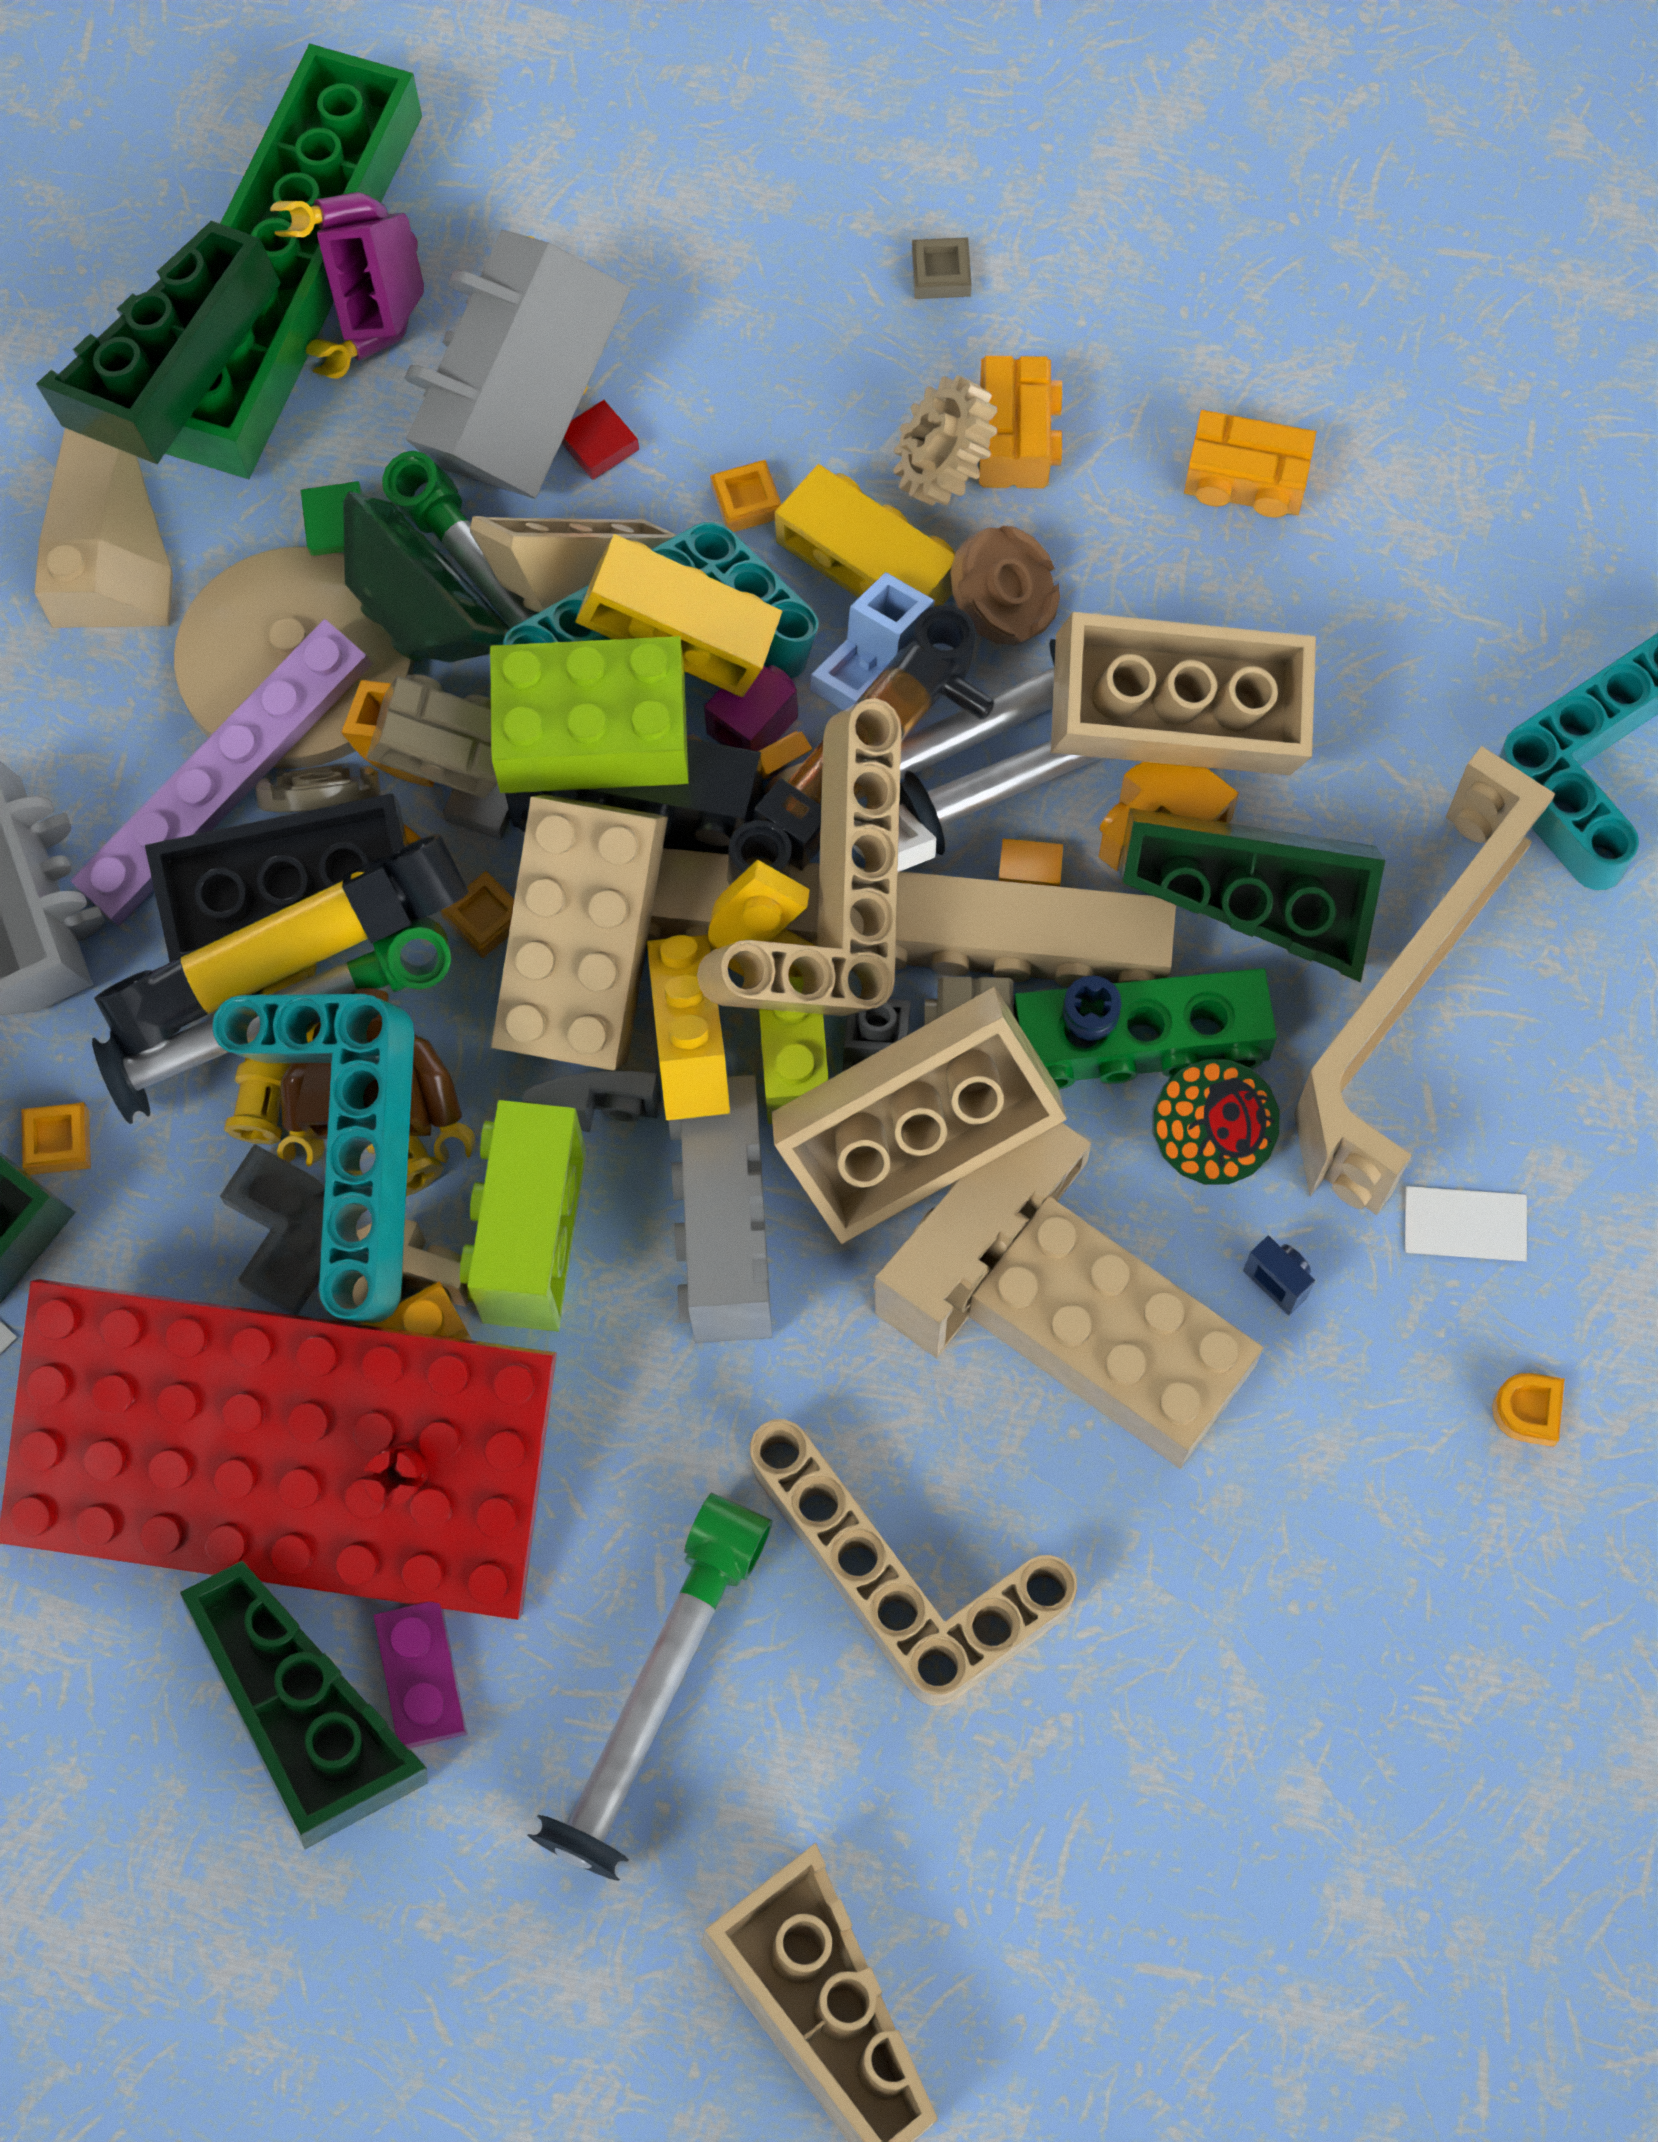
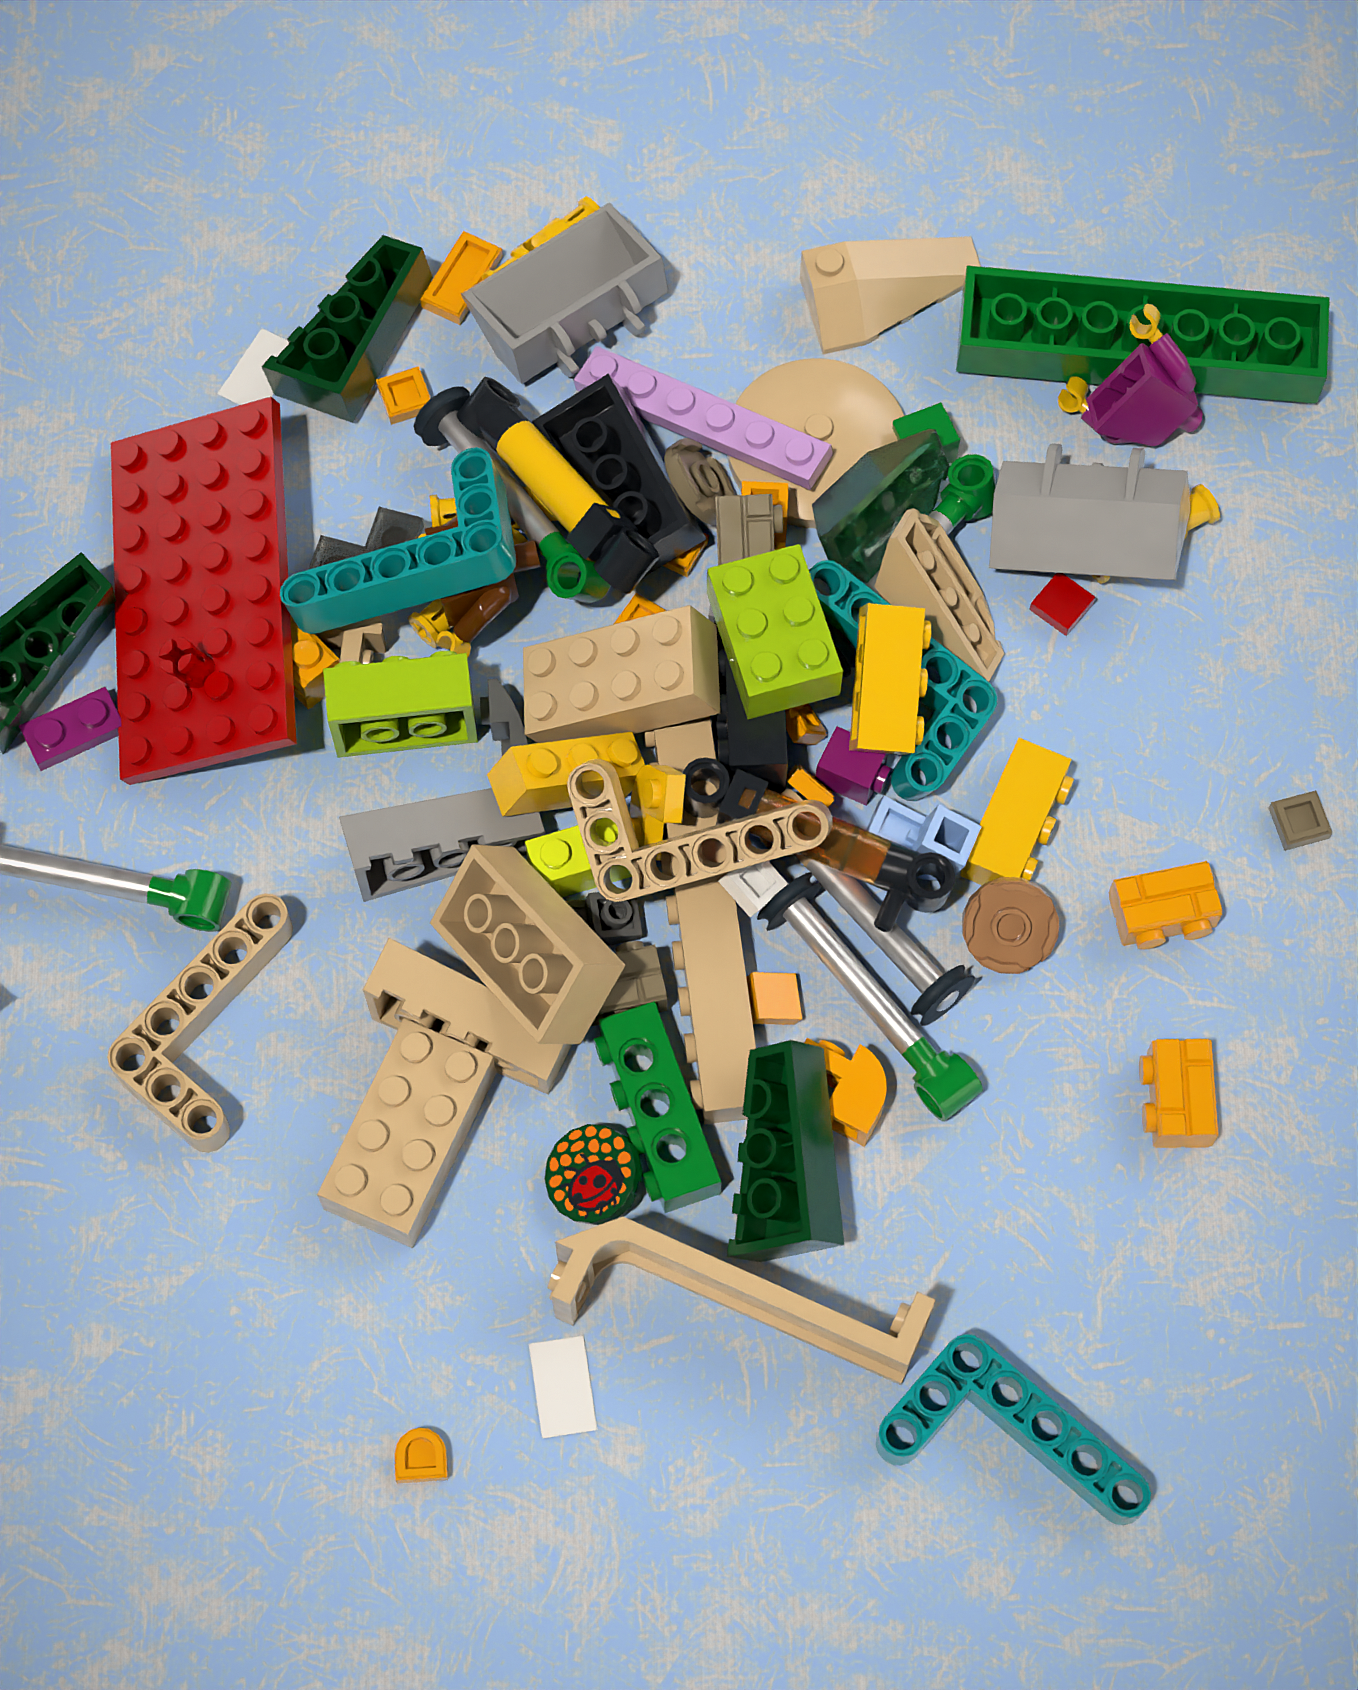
camera: 75 degrees right, 0 degrees up
(166, 347) = (1013, 270): dark green wedge -> none
(746, 495) = (1045, 721): light orange tile -> none
(945, 440) = (1121, 848): tan gear -> none
(1092, 989) = (666, 1055): dark blue bush -> none
(1183, 694) = (921, 1062): tan brick -> none
(1280, 1273) = (482, 1246): dark blue plate -> none

